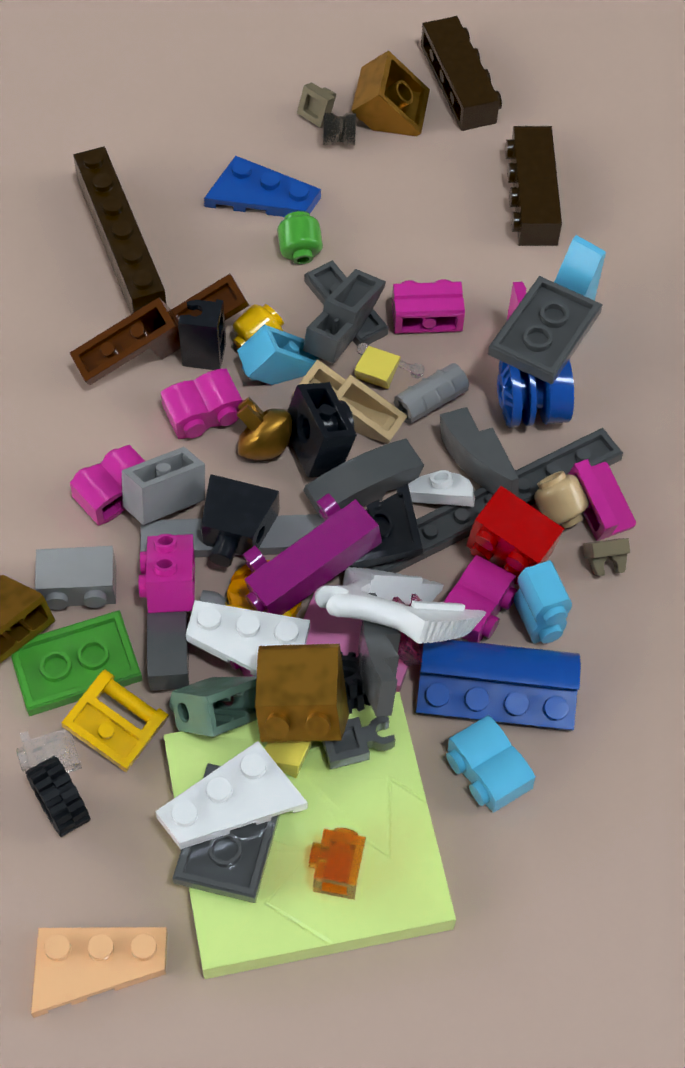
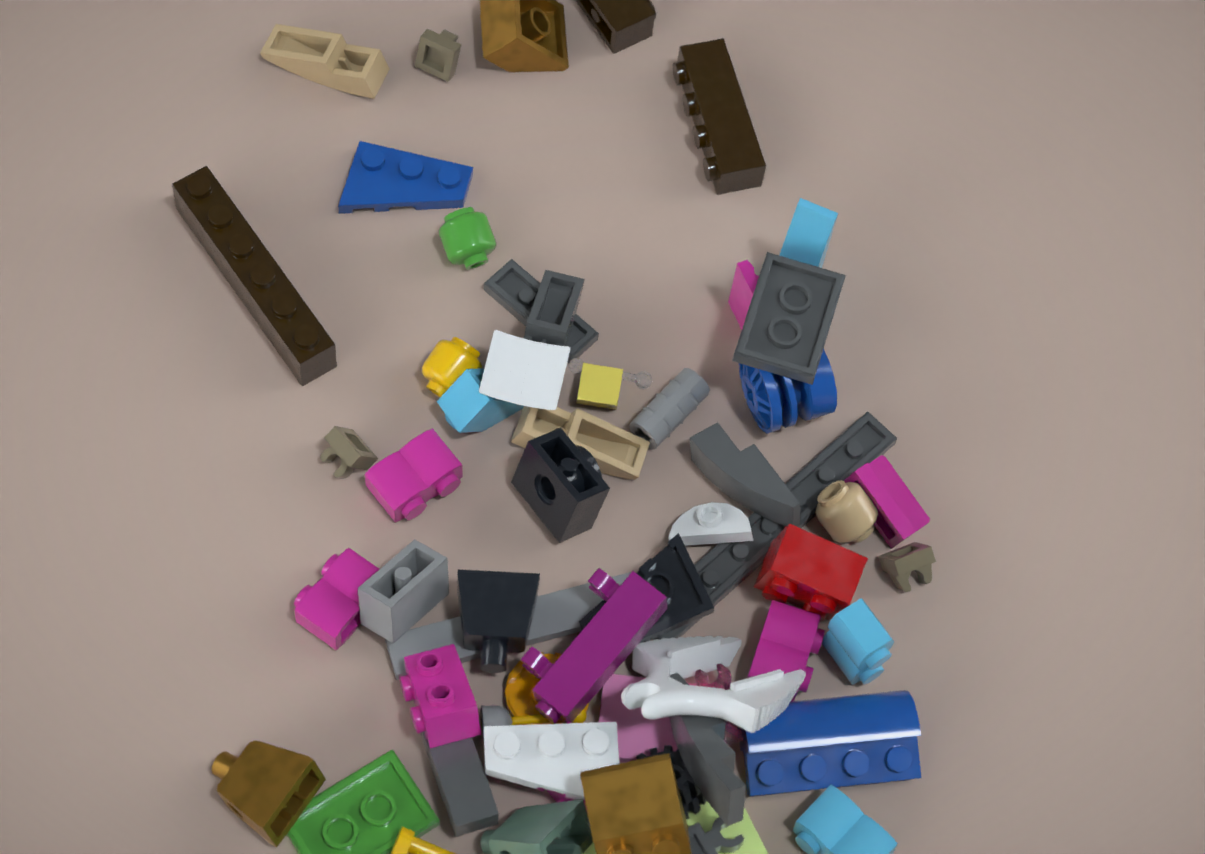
camera: 20 degrees left, 5 degrees up
(76, 576) = (334, 721): light grey brick -> none
(149, 328) = (341, 395): reddish brown bracket -> none
(154, 373) = (350, 449): none -> dark tan tile
(203, 335) = (395, 398): black hinge -> none
(228, 95) = (326, 59): none -> tan slope
(265, 433) = (497, 497): pearl gold piece -> none
(311, 335) = (524, 371): none -> white sticker
(339, 129) = (474, 82): clear smoke wheel -> none
(367, 475) = (625, 530): dark grey slope -> none
(428, 307) = (637, 299): dark pink brick -> none

